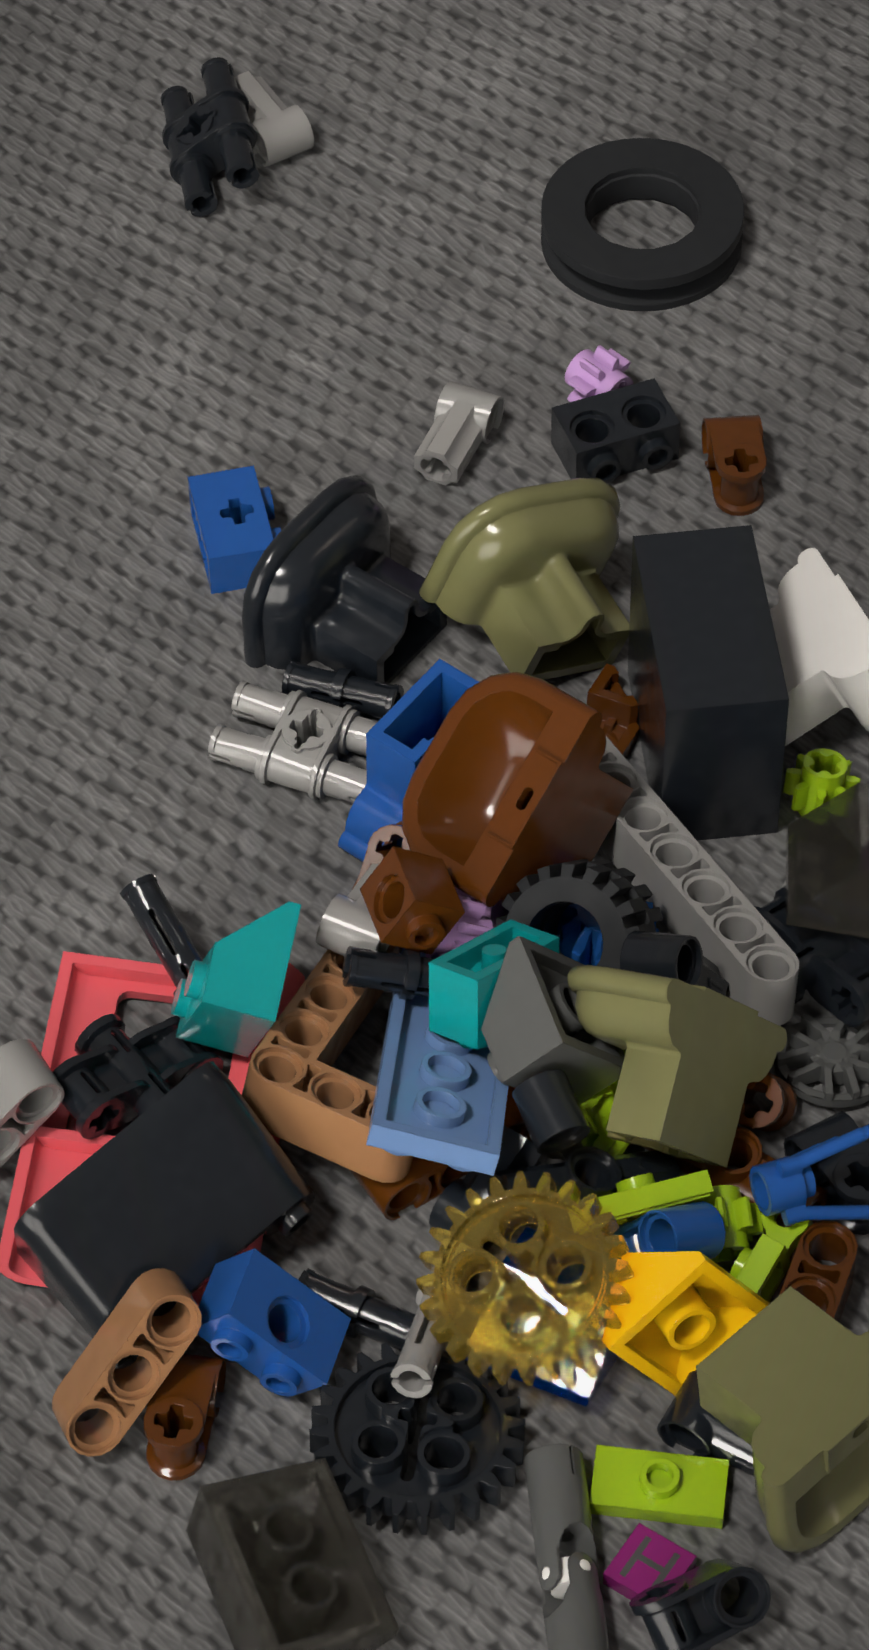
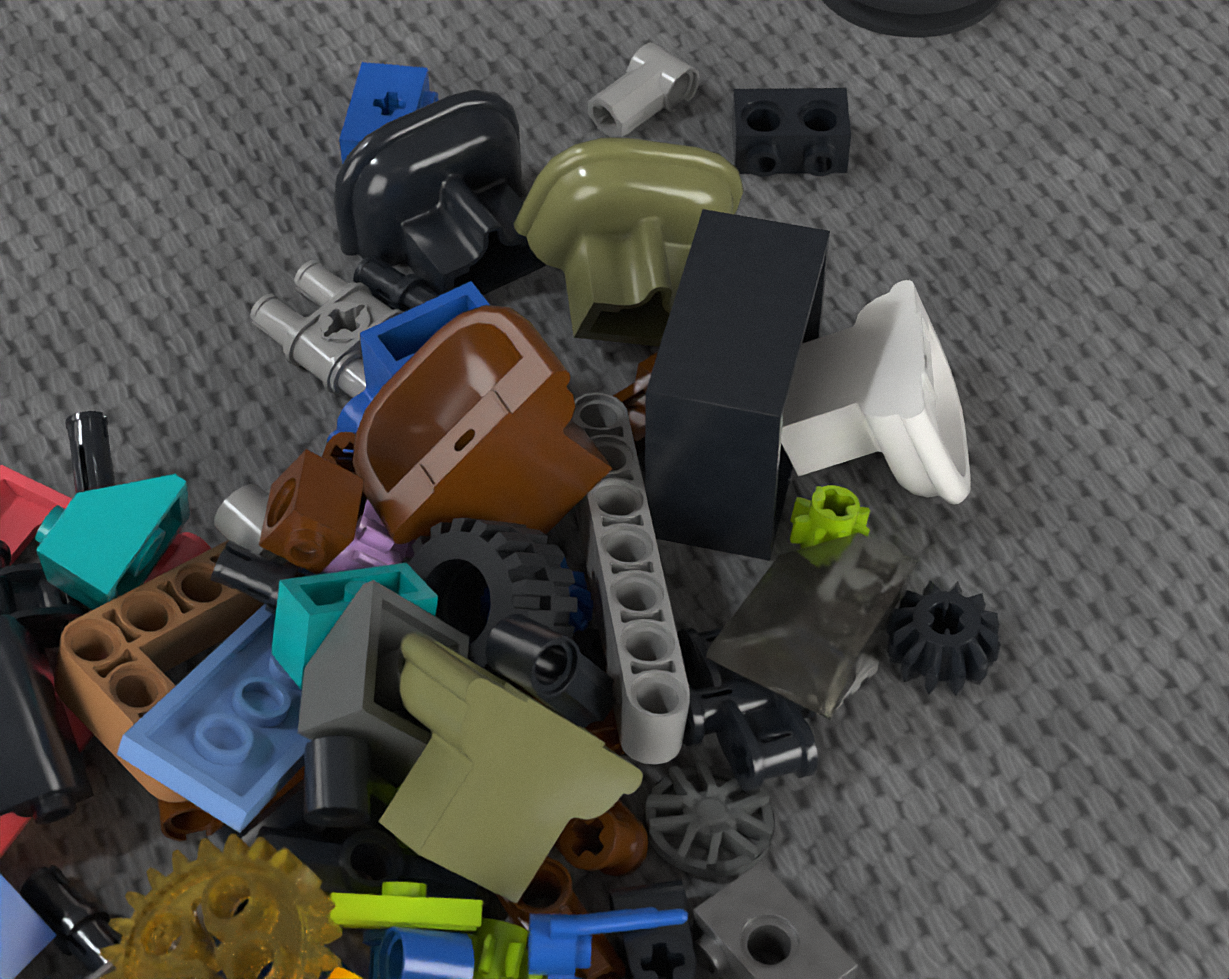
camera: 20 degrees right, 0 degrees up
(596, 373) = (797, 69): lavender gear -> none
(735, 462) = (897, 189): reddish brown piece -> none

